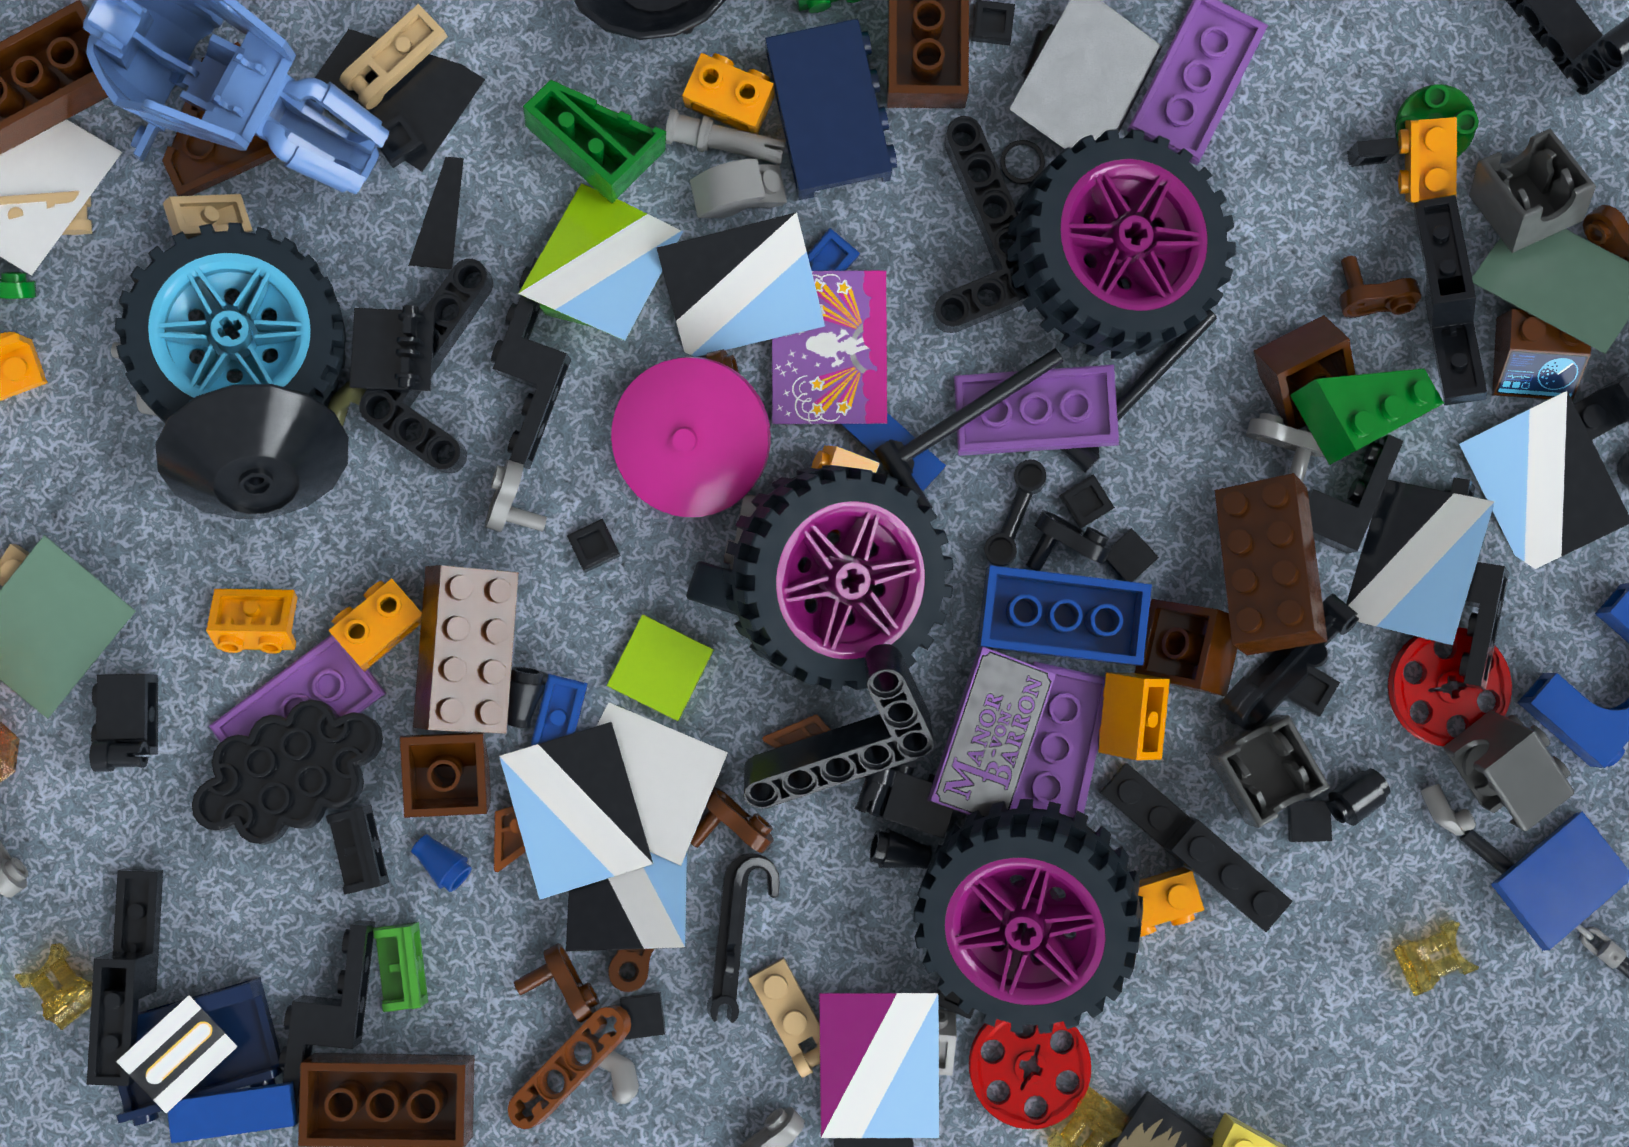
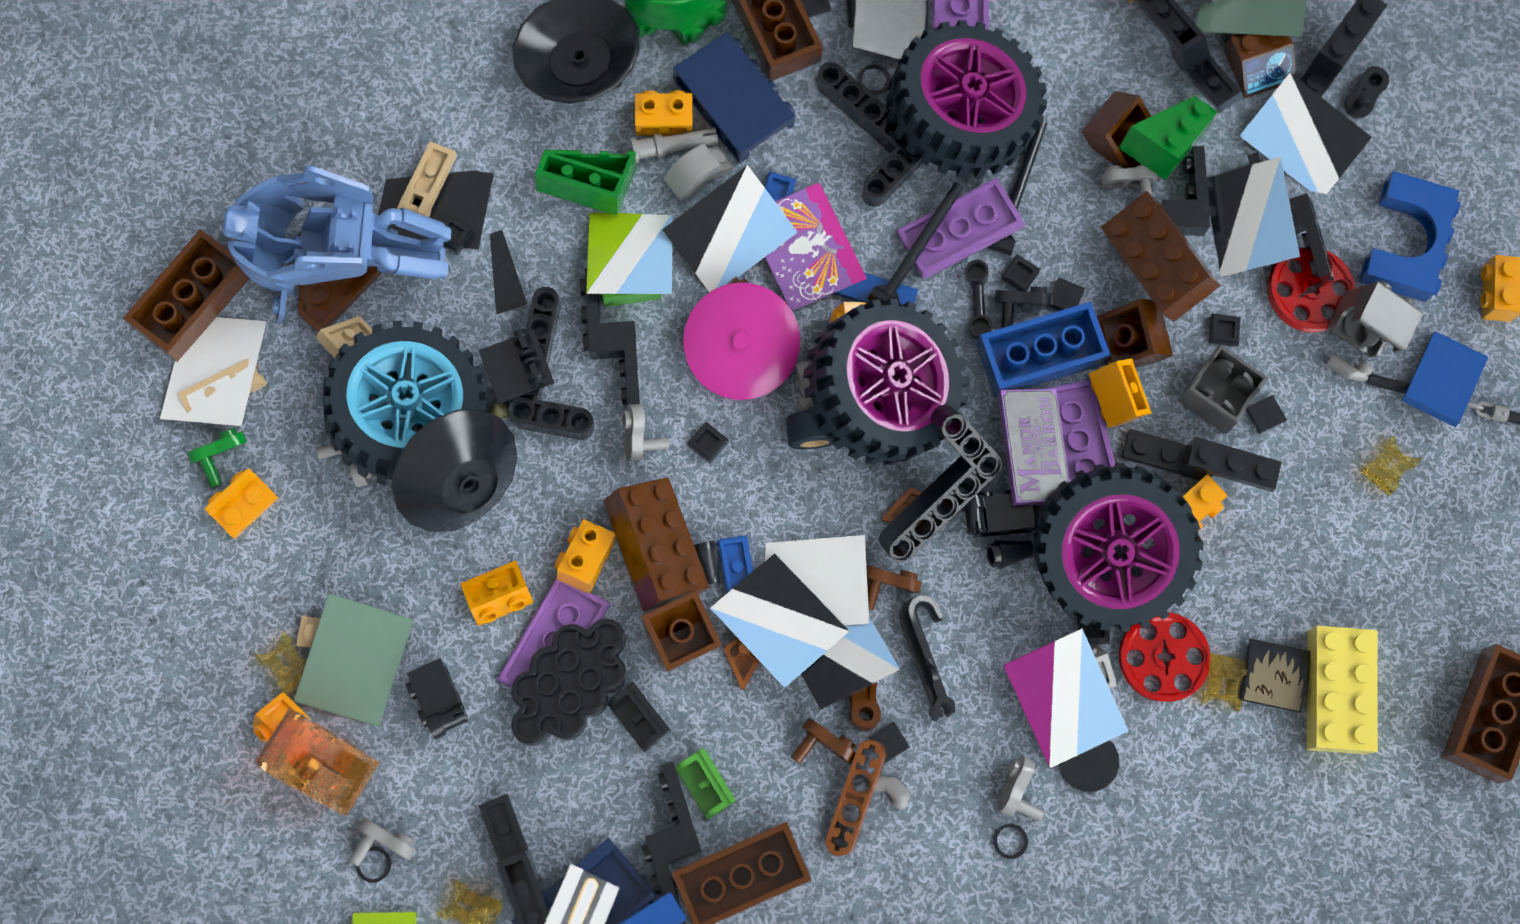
camera: 35 degrees left, 10 degrees down
(443, 864) = (703, 699): blue cone -> none
(660, 667) = (791, 503): lime tile -> none
(789, 1013) = (988, 695): tan plate -> none
(1282, 672) = (1200, 327): black piece -> none
(1358, 796) = (1289, 383): black brick -> none
(1365, 299) = (1137, 70): reddish brown piece -> none

